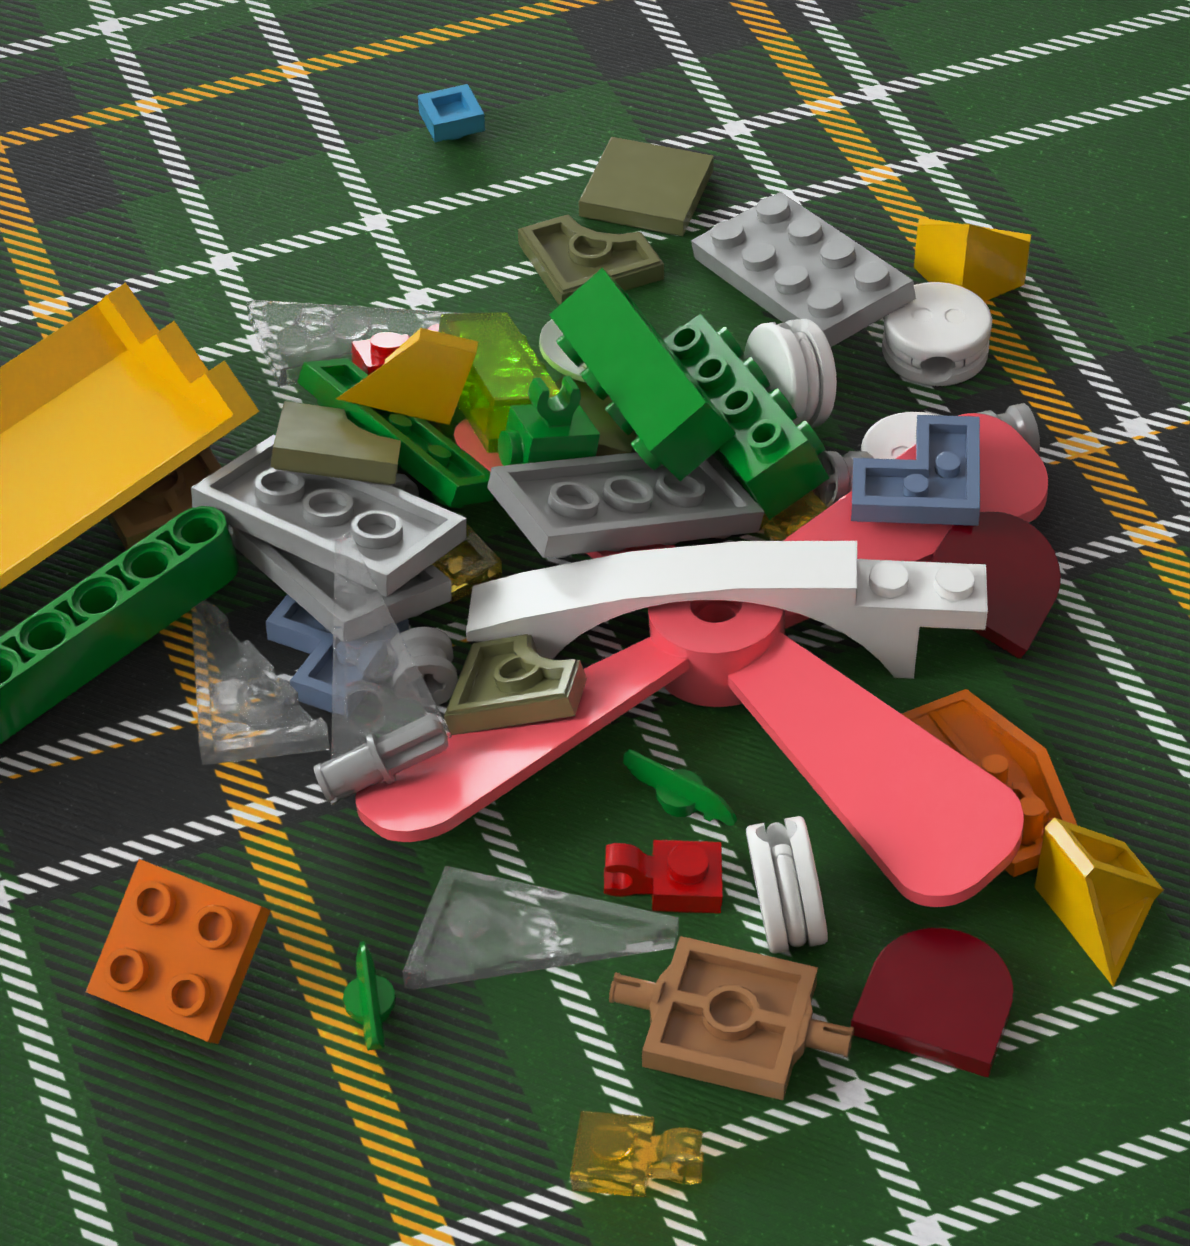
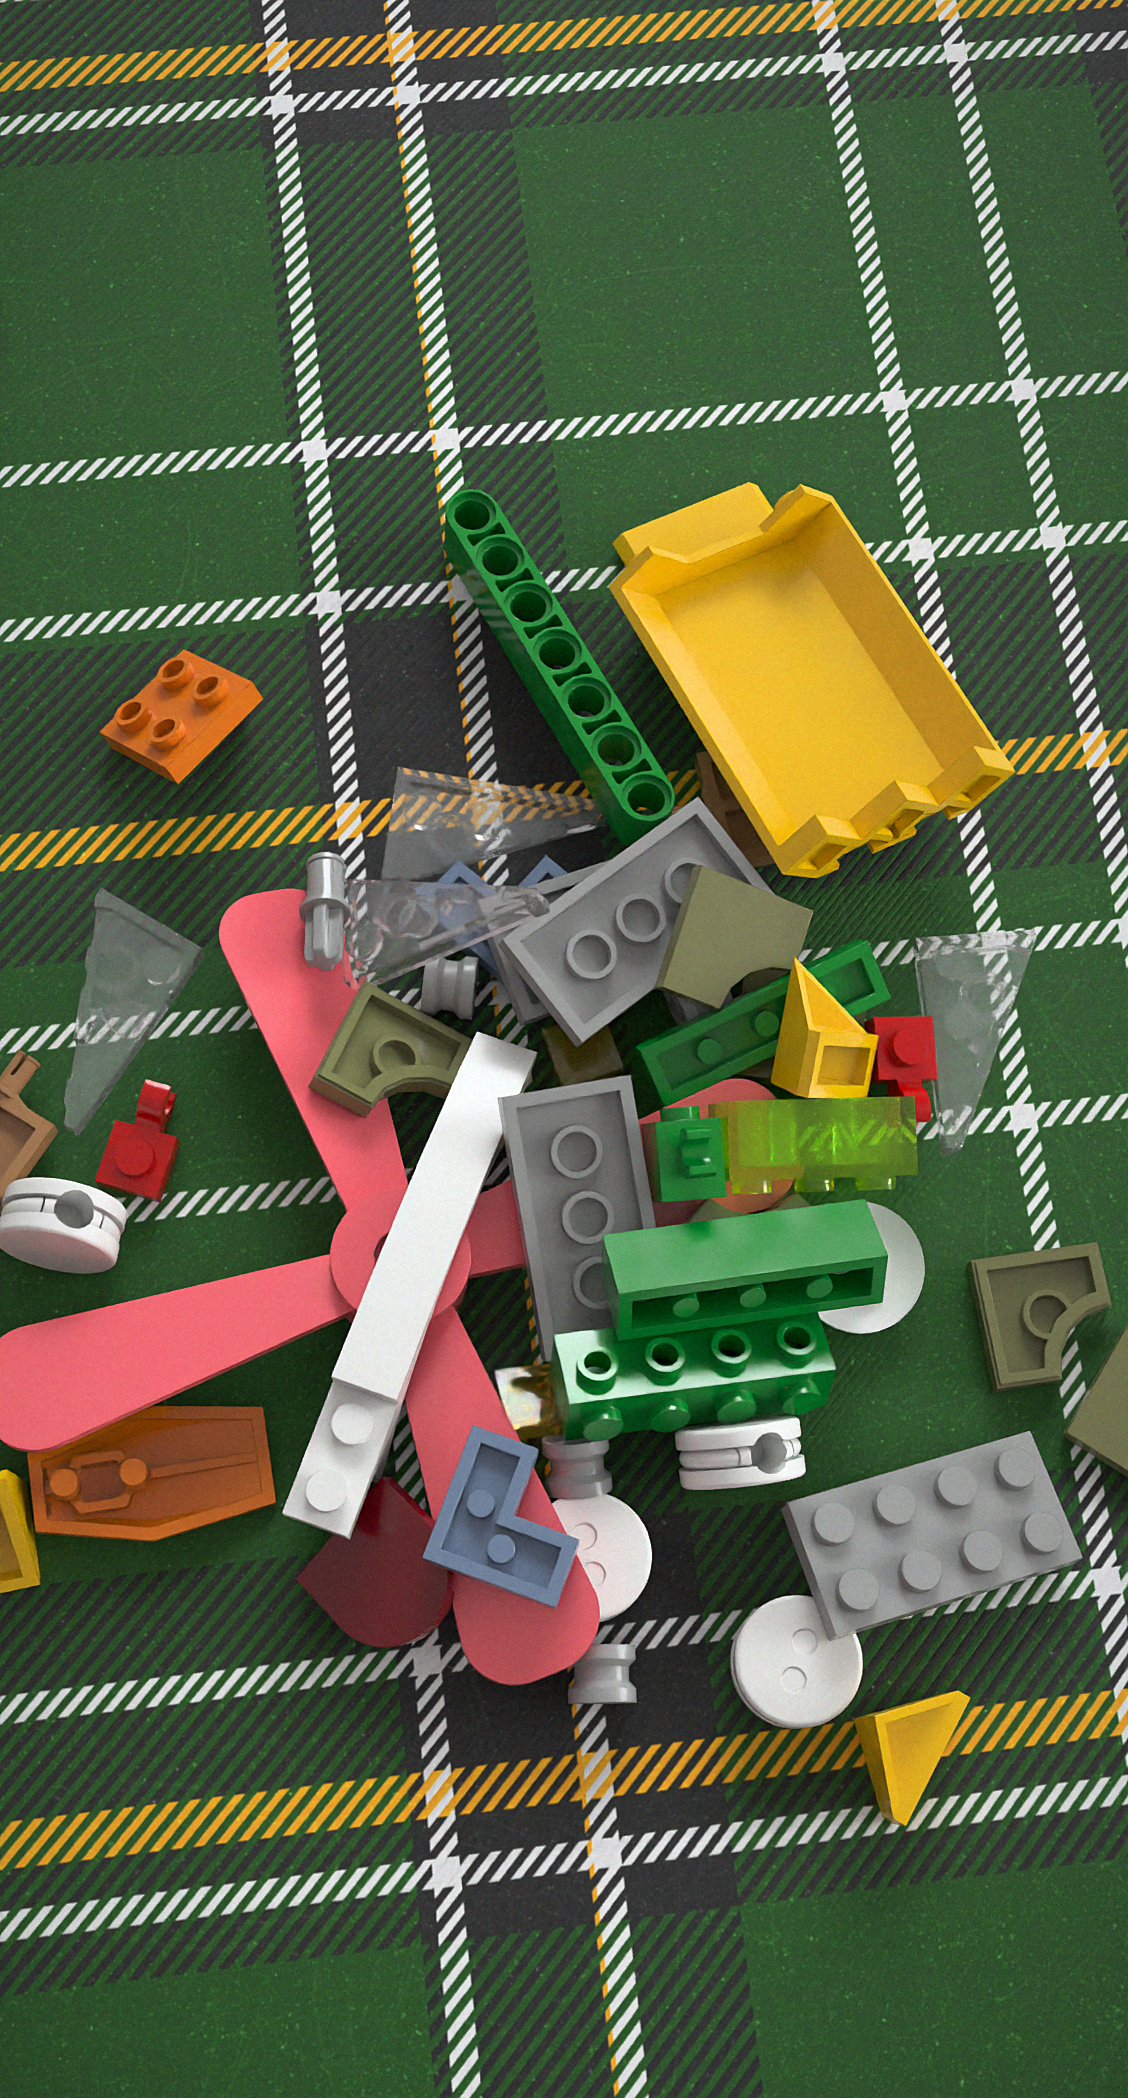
camera: 100 degrees right, 25 degrees up
(369, 999) = (100, 865): green piece -> none
(679, 790) = (237, 1183): green piece -> none

